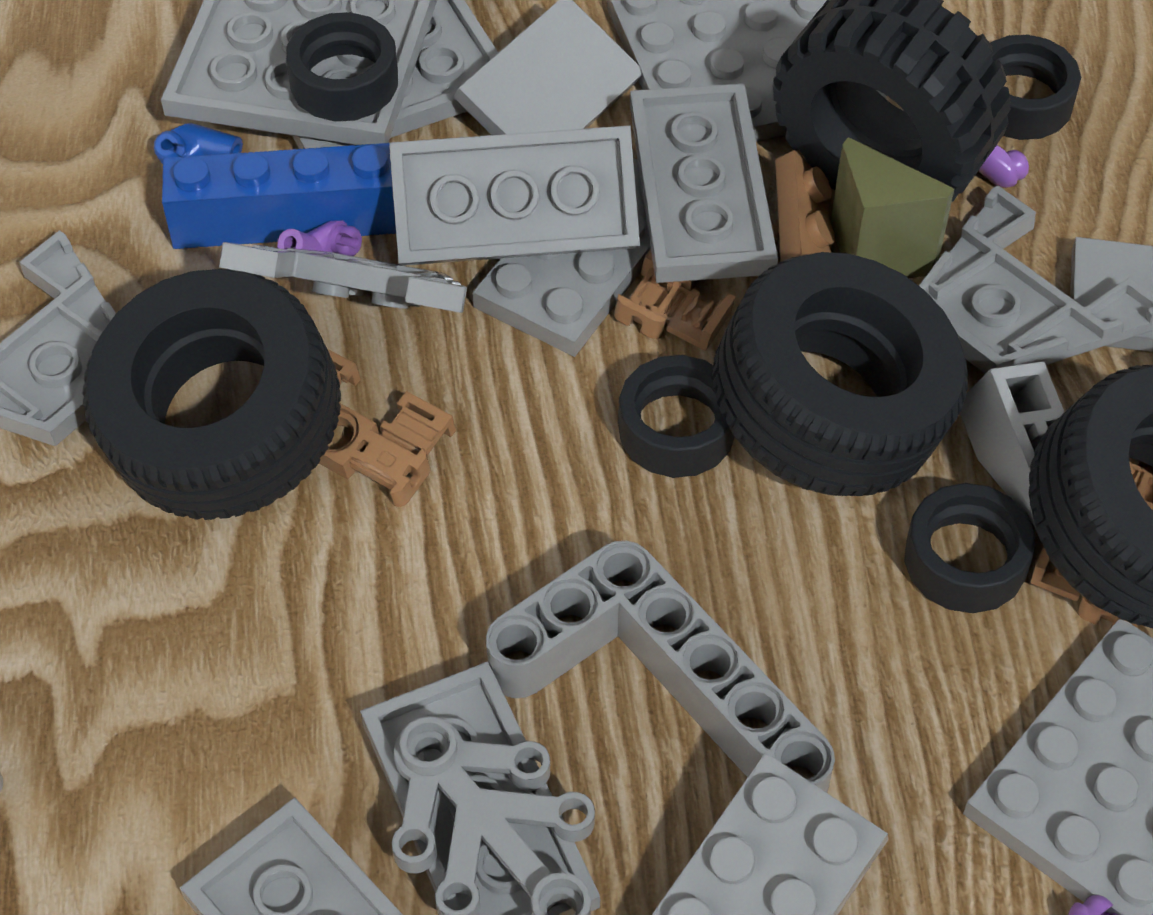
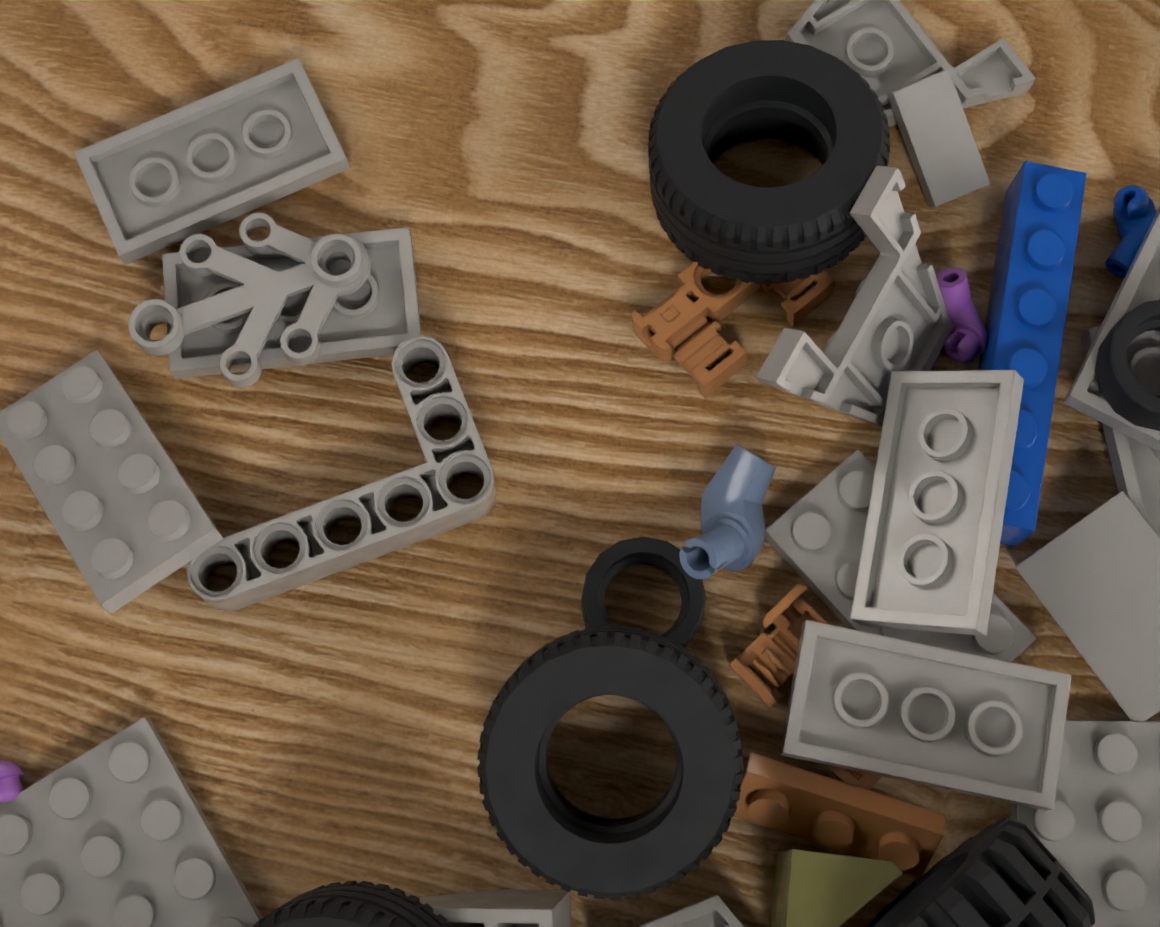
camera: 105 degrees right, 20 degrees up
(111, 288) = (938, 138): none -> light grey tile
(577, 366) = (730, 517): none -> sand blue arm
(978, 507) = (383, 781): black tyre -> none

